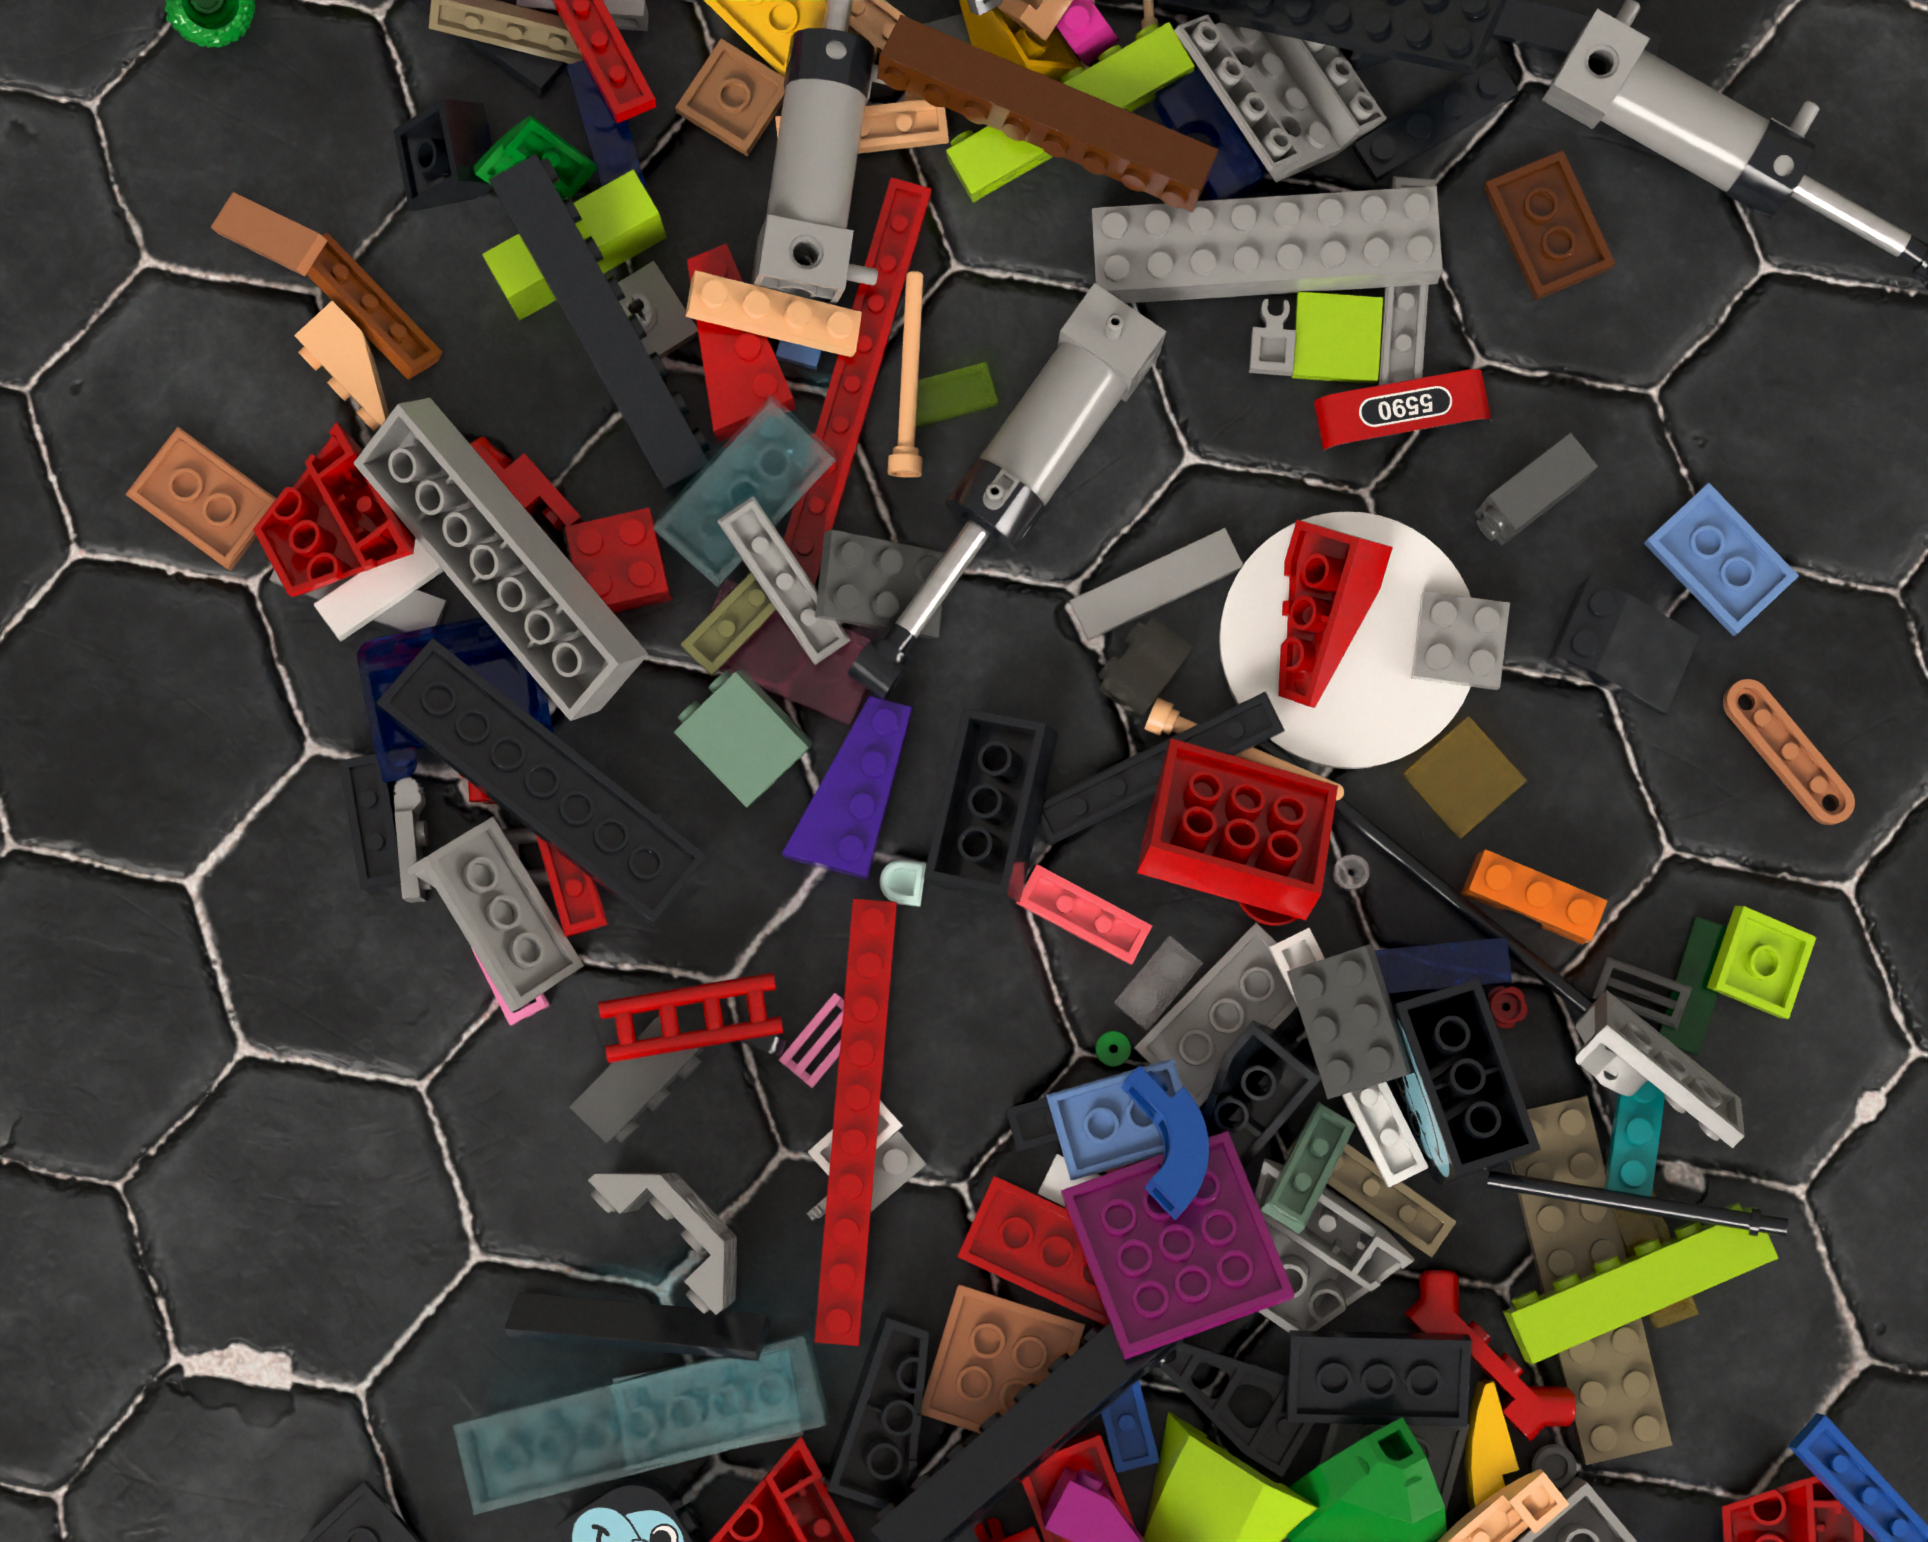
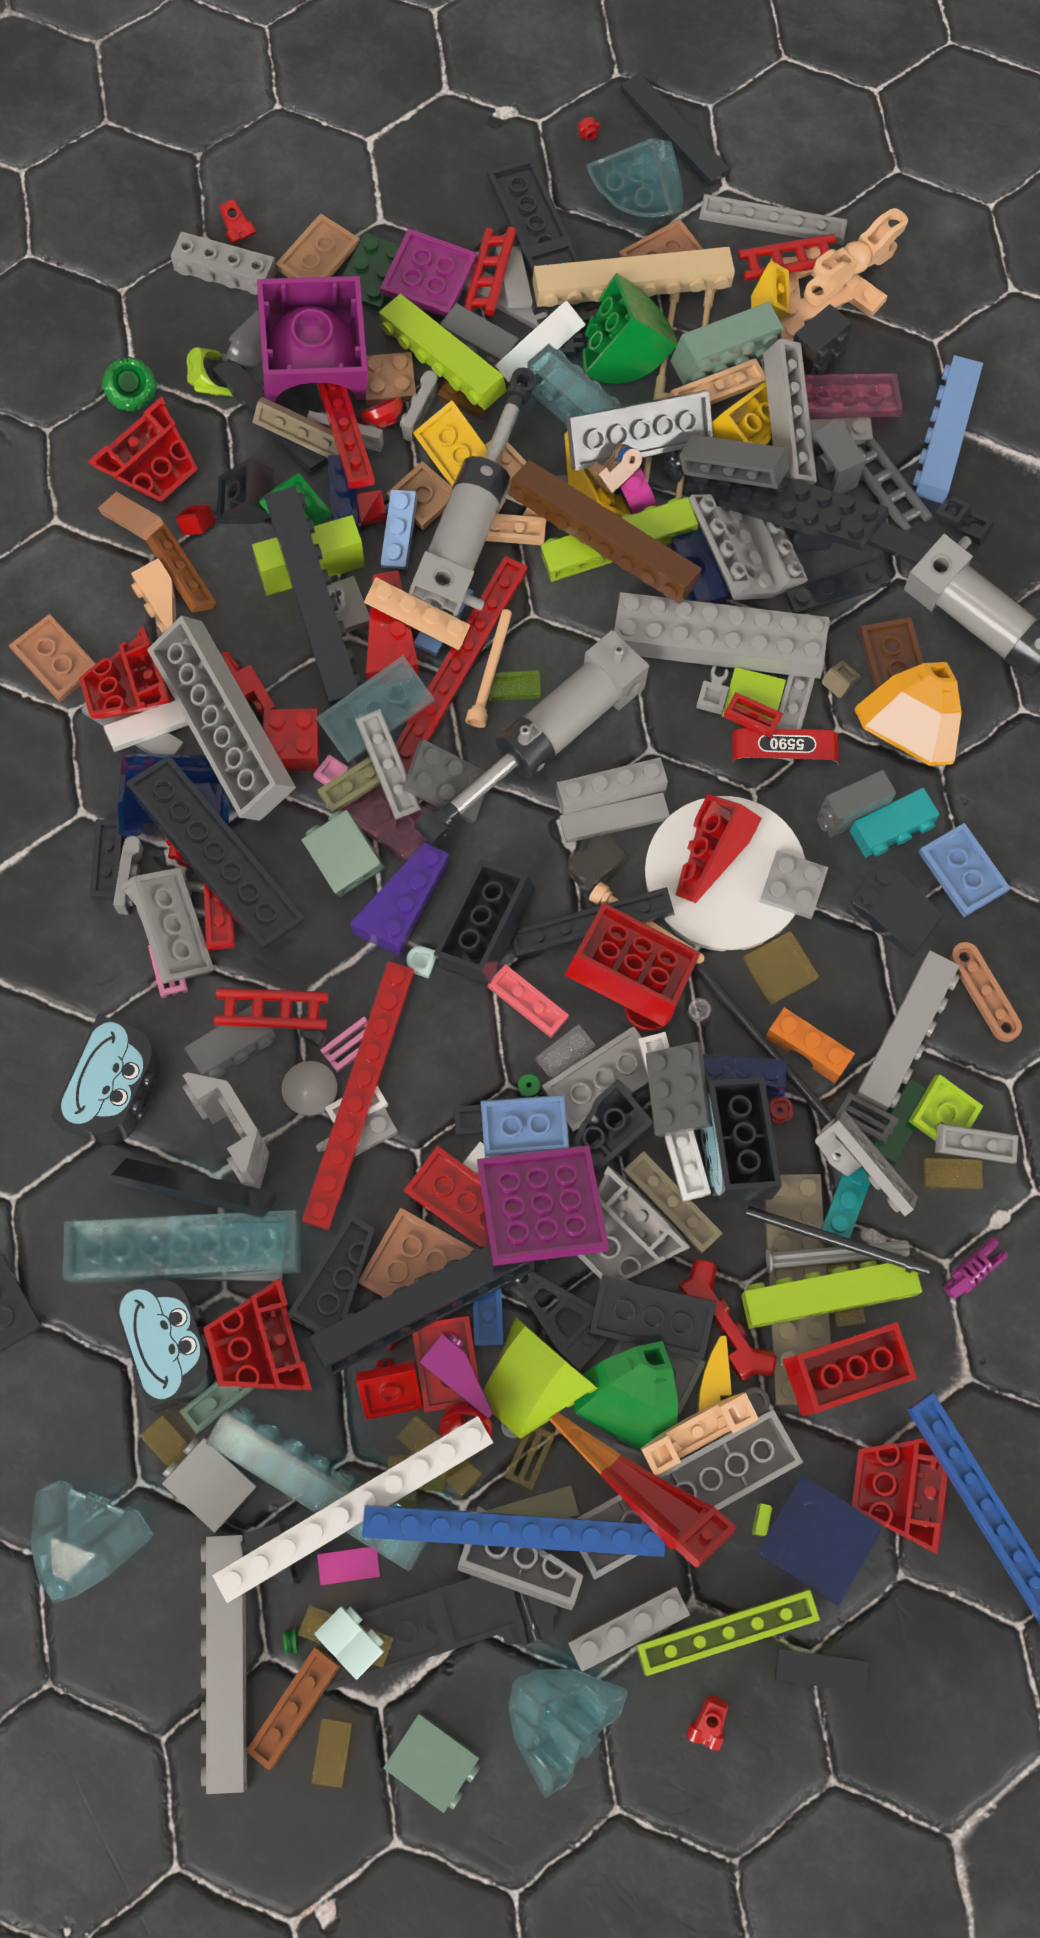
camera: 10 degrees right, 10 degrees down
(272, 121) = (149, 455): none -> red wedge
(374, 214) = (195, 519): none -> red slope
(467, 1187) = (109, 1083): none -> brick
(655, 135) = (371, 507): none -> red slope
(692, 600) = (329, 770): none -> bright pink tile
(710, 166) = (399, 529): none -> light blue plate
(775, 1123) = (309, 1088): none -> light grey dish
(1144, 538) = (612, 786): none -> light grey brick
(1183, 1140) = (560, 1136): blue arch -> none
(1308, 1167) = (634, 1176): sand green tile -> none
(1339, 385) = (750, 718): none -> red tile
(1469, 275) = (841, 679): none -> dark tan slope
(1600, 505) = (895, 823): none -> teal brick
(1603, 316) = (916, 713): none -> light orange brick
(1628, 1223) = (827, 1255): none -> light grey axle
(1680, 842) = (908, 1030): none -> light grey brick
(1689, 1396) = (849, 1369): none -> red brick
(1788, 1052) = (953, 1173): none -> clear yellow plate
(1817, 1000) = (976, 1143): none -> light grey tile
(1847, 1194) = (974, 1269): none -> magenta hinge

